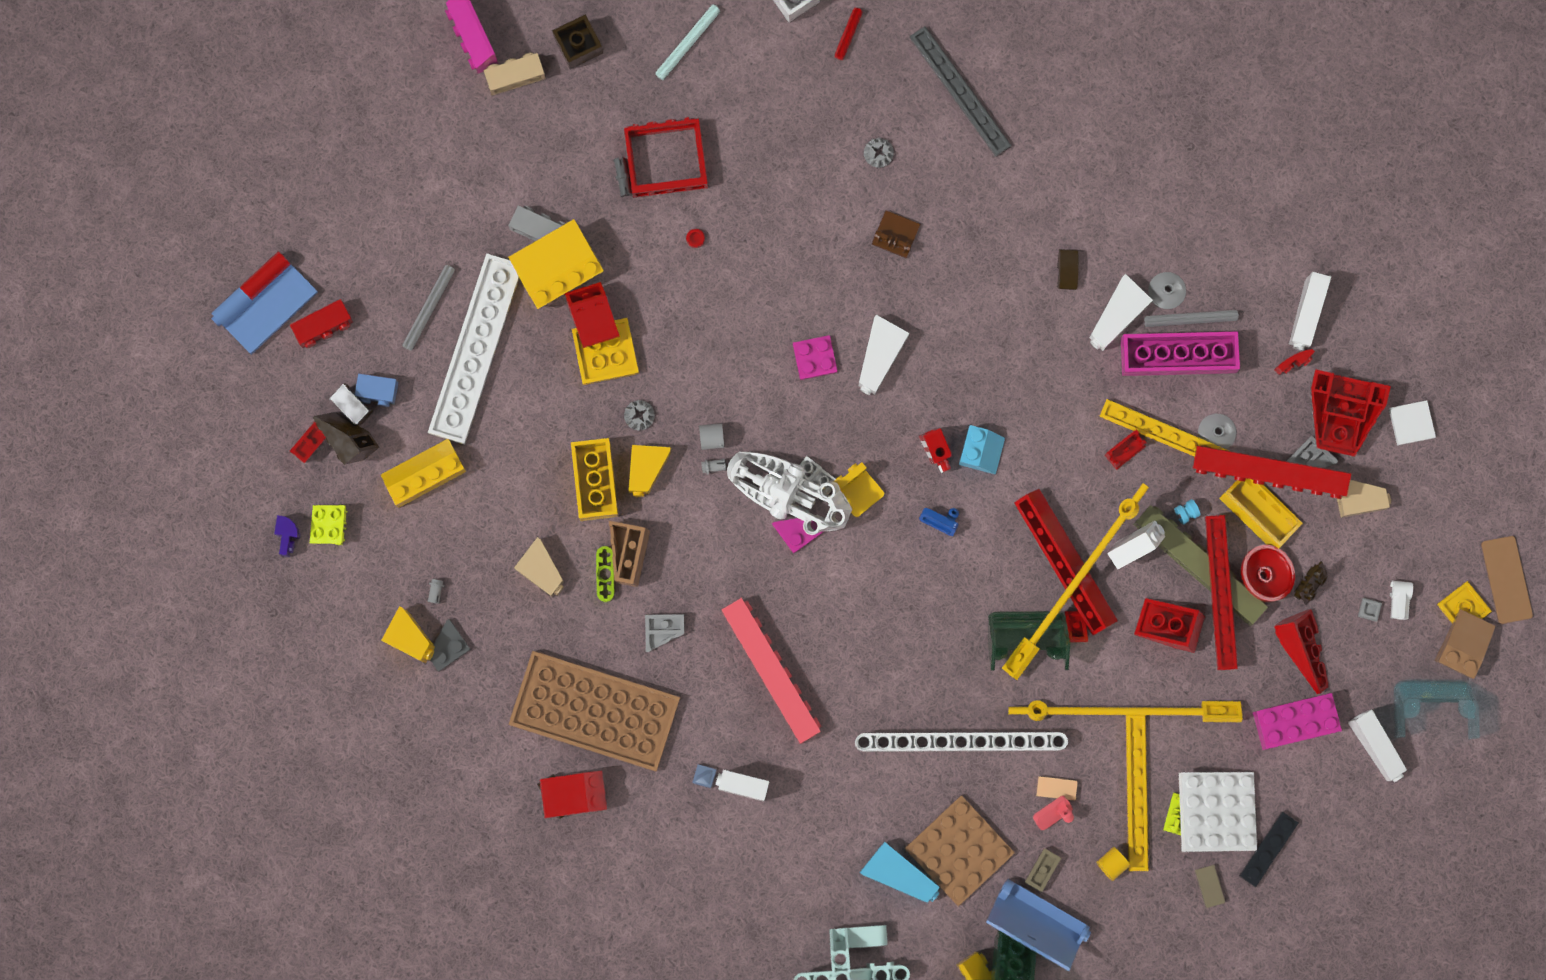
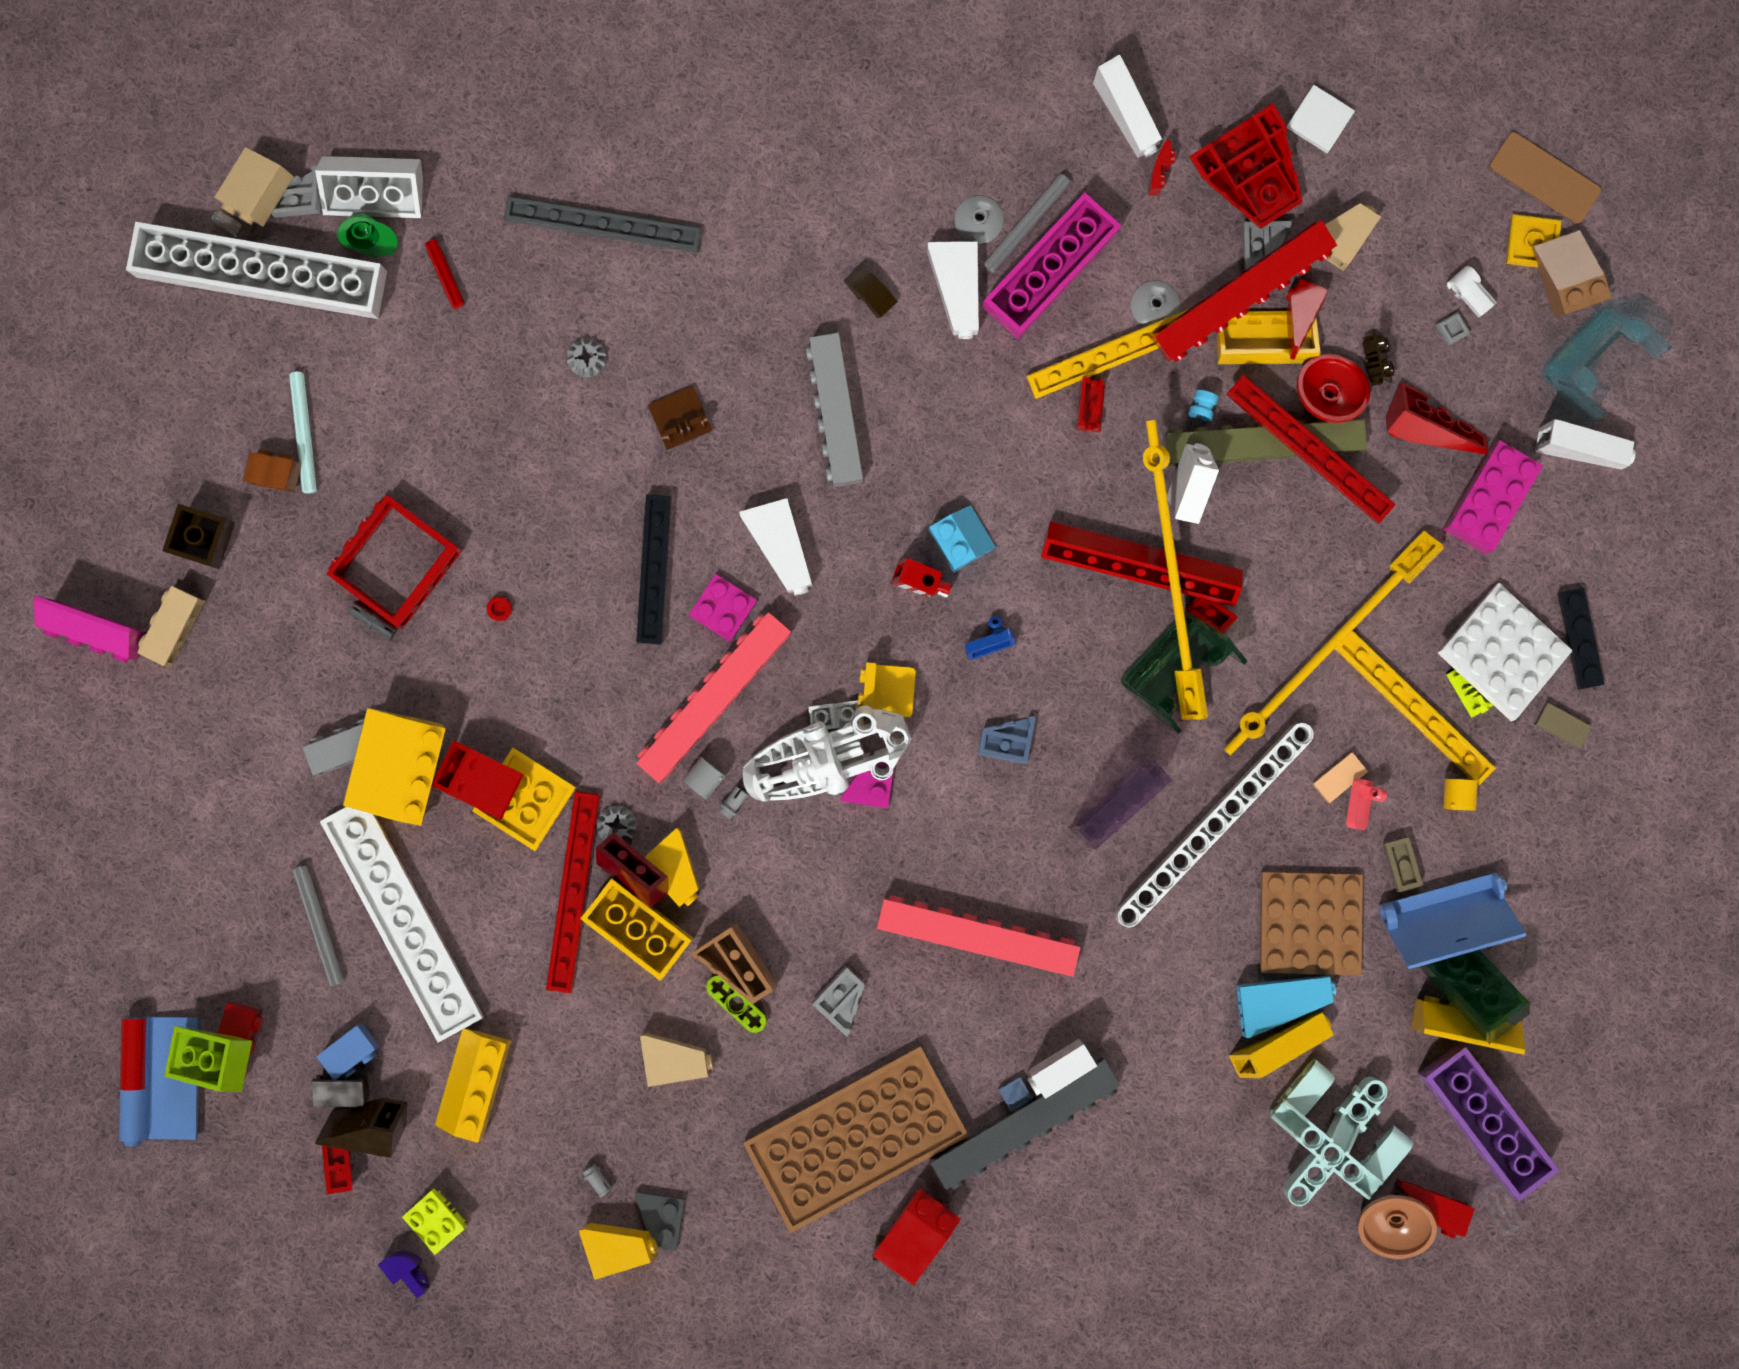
camera: 45 degrees left, 5 degrees up
(302, 317) = (208, 1059): none -> lime slope
(580, 426) = (573, 892): none -> red tile
(624, 444) = (632, 870): none -> dark red brick
(650, 46) = (271, 471): none -> dark orange brick
(693, 795) = (1021, 1125): none -> dark grey brick
(761, 400) = (714, 697): none -> coral brick
(798, 300) = (653, 569): none -> black plate
(875, 898) = (1281, 1046): none -> yellow slope
(895, 584) = (1008, 741): none -> sand blue wing
(920, 674) = (1120, 804): none -> clear purple window
(983, 314) = (835, 409): none -> light grey brick
(1170, 625) = (1291, 525): red slope -> none
(1297, 514) = (1303, 307): none -> slope

